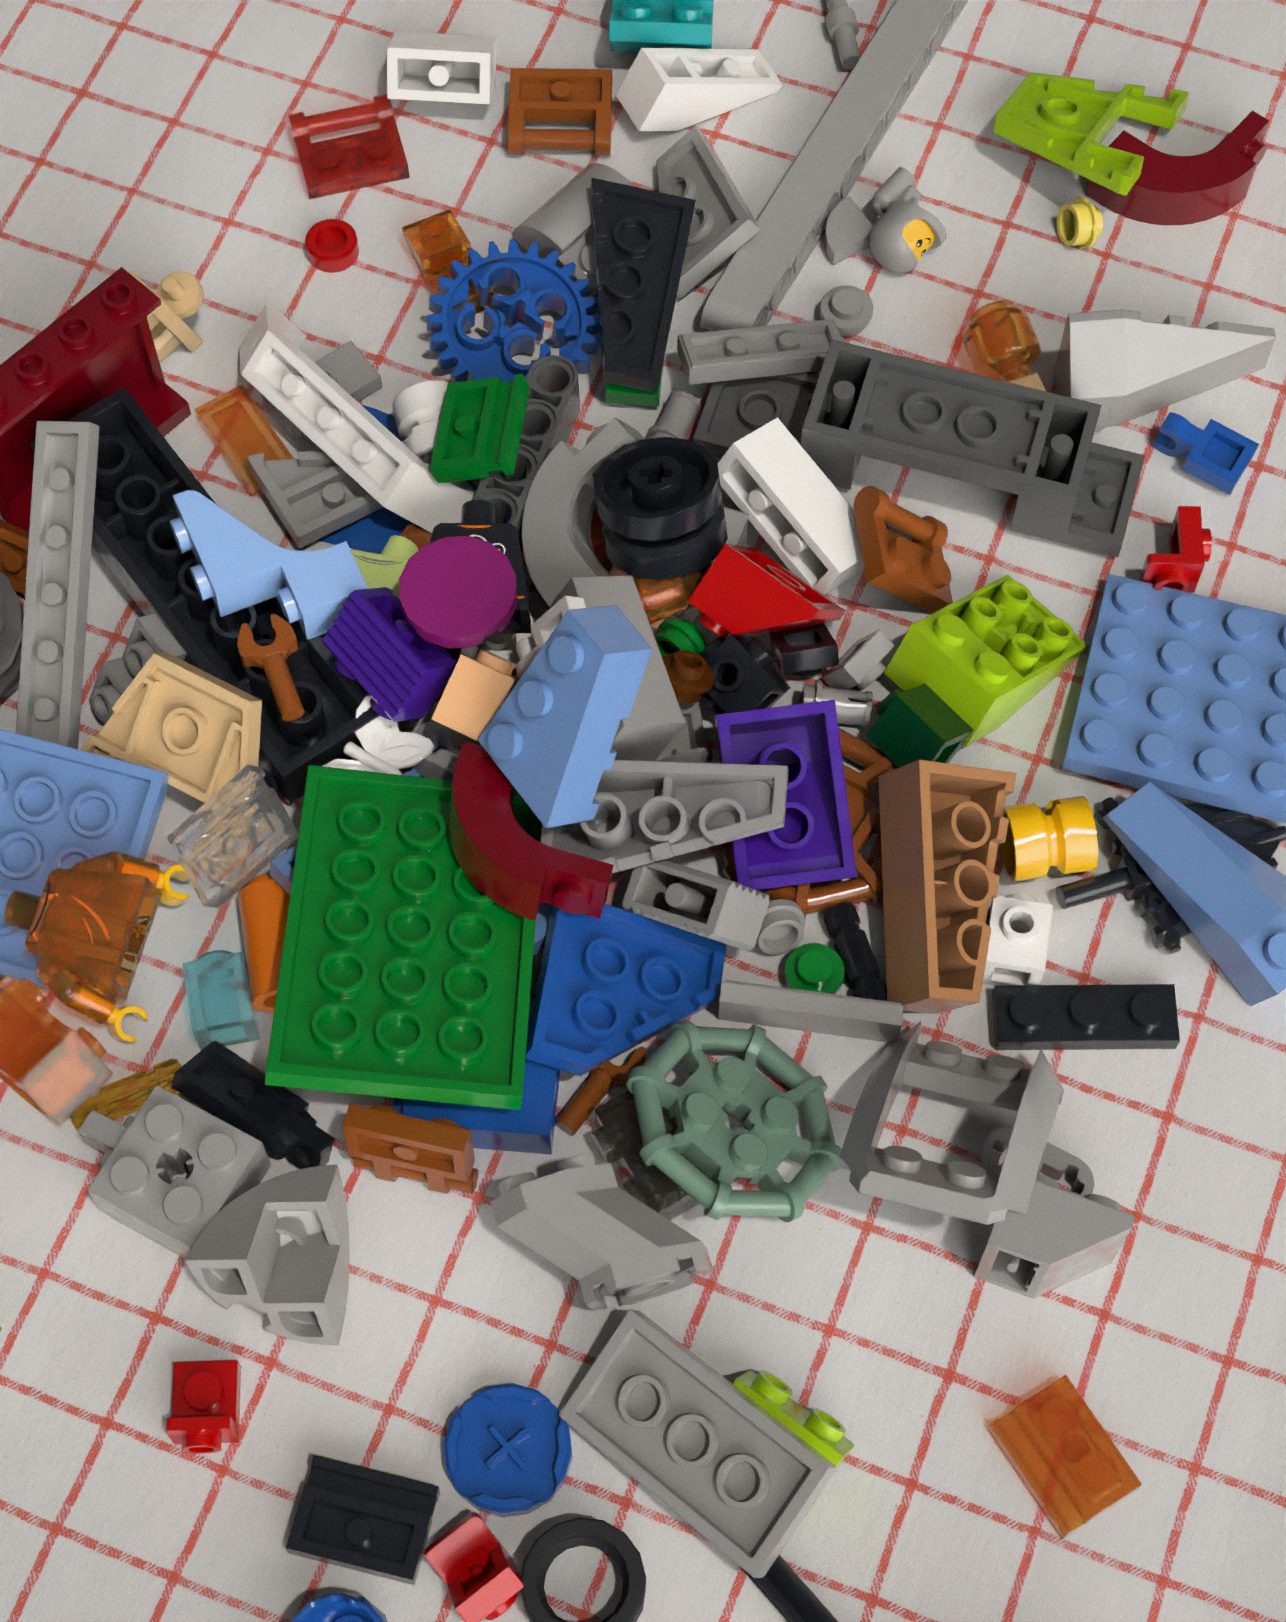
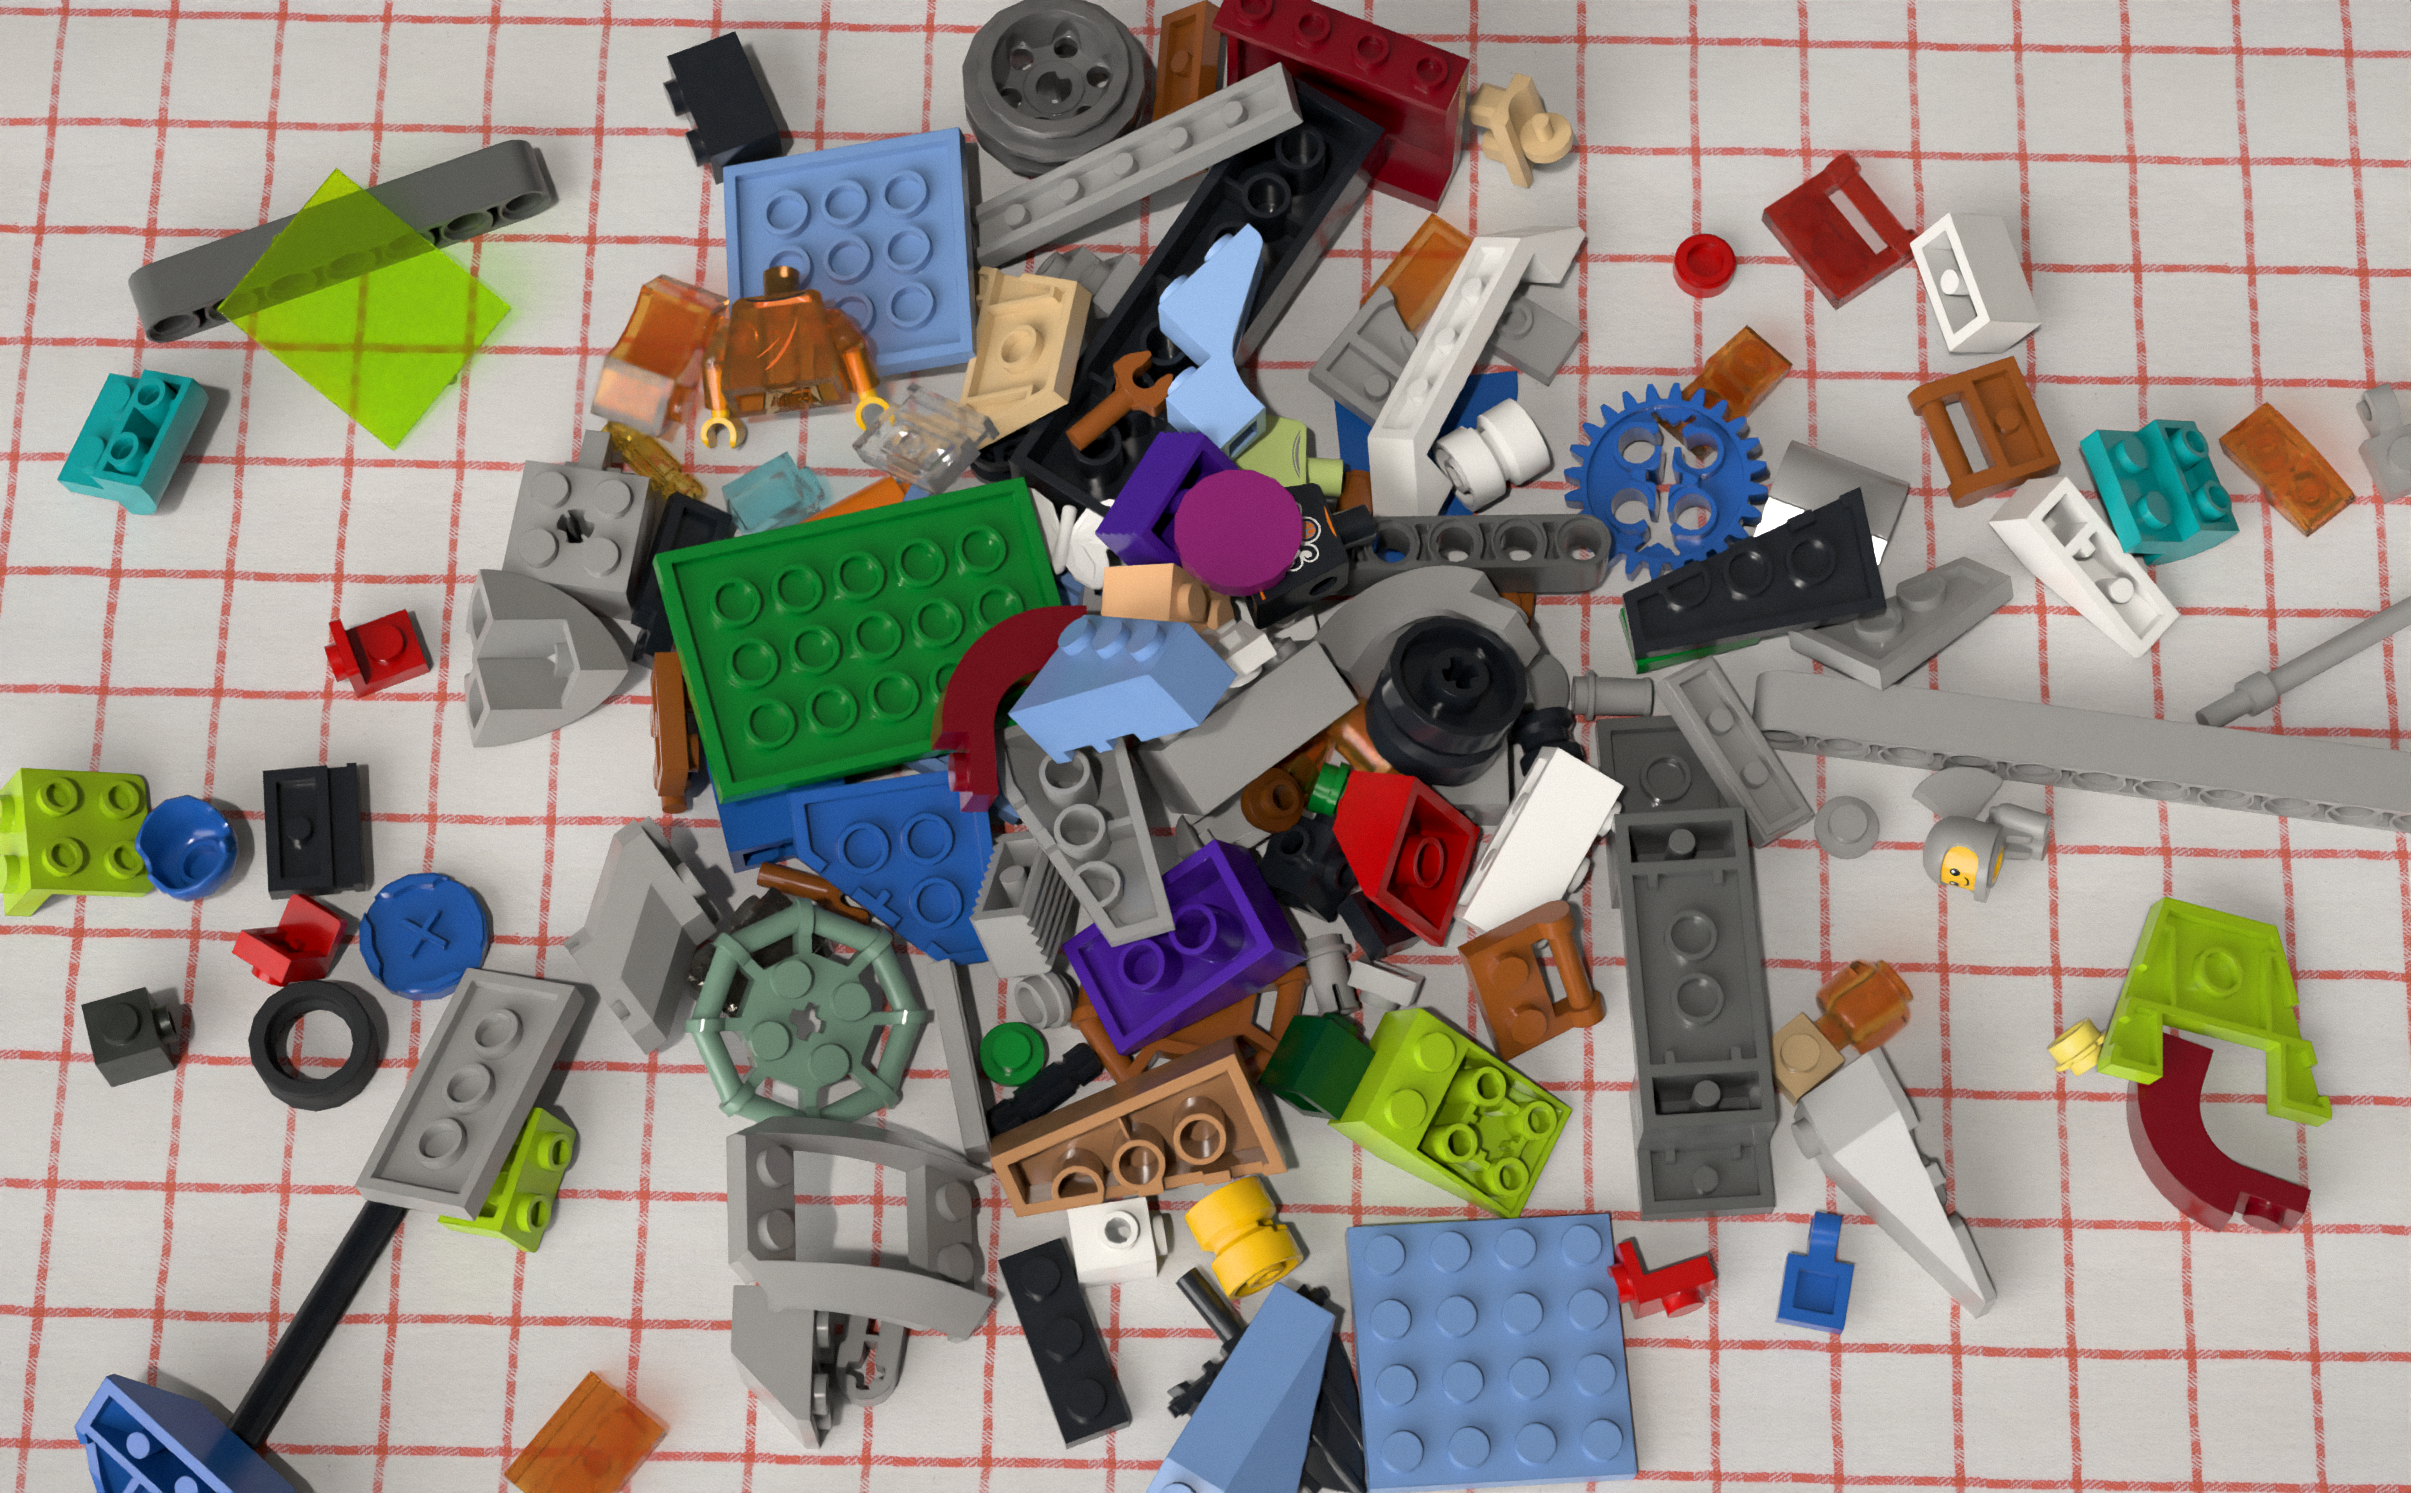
camera: 70 degrees right, 5 degrees up
(479, 429) = (1480, 490): green plate -> none

